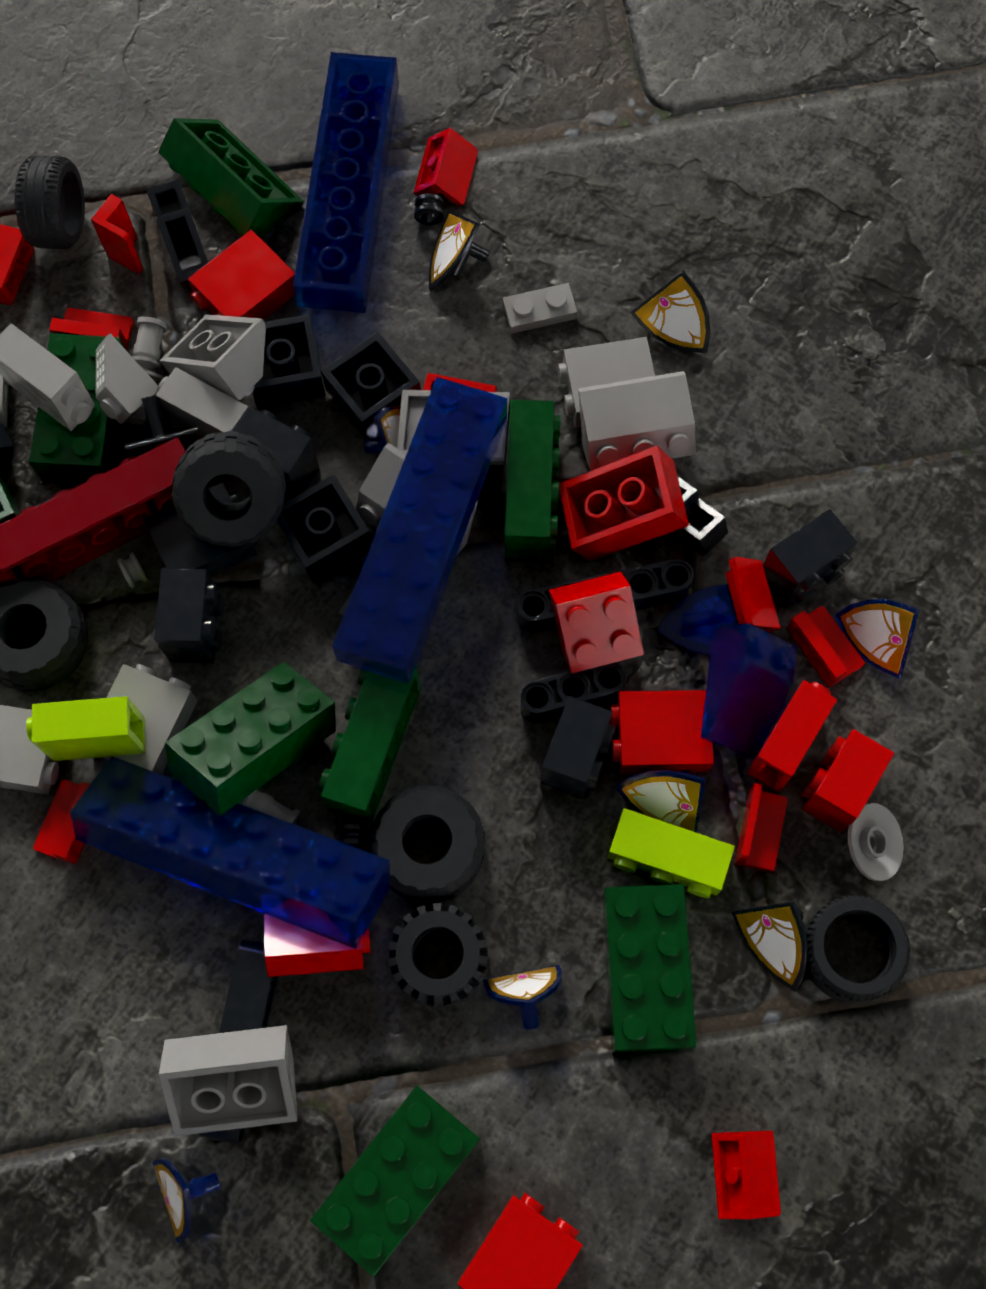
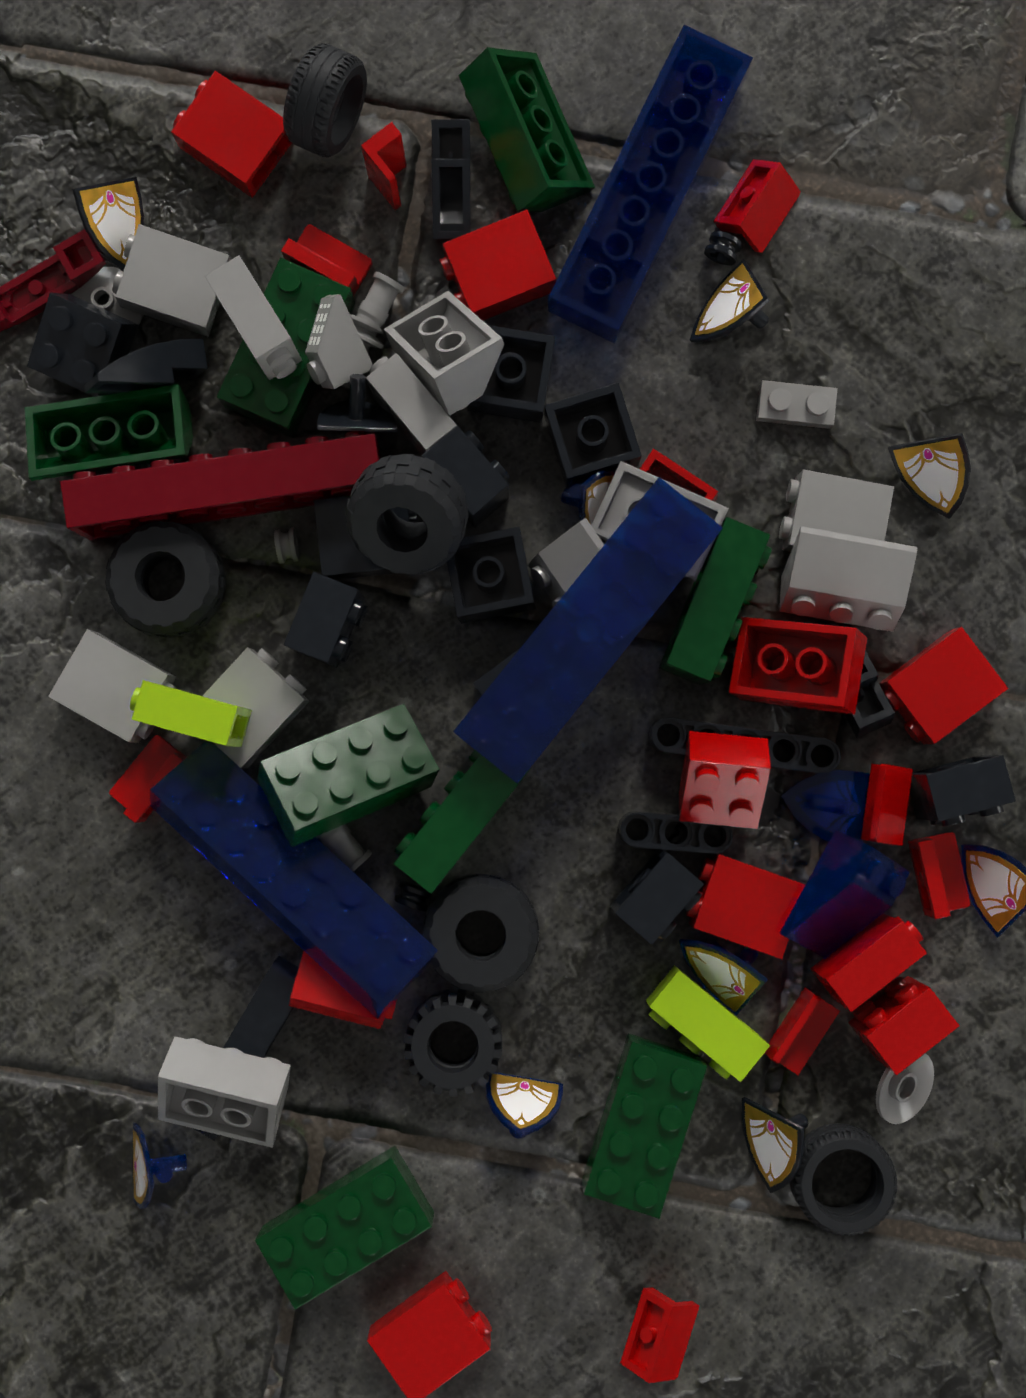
camera: 15 degrees right, 15 degrees up
(758, 485) = (942, 686): none -> red brick

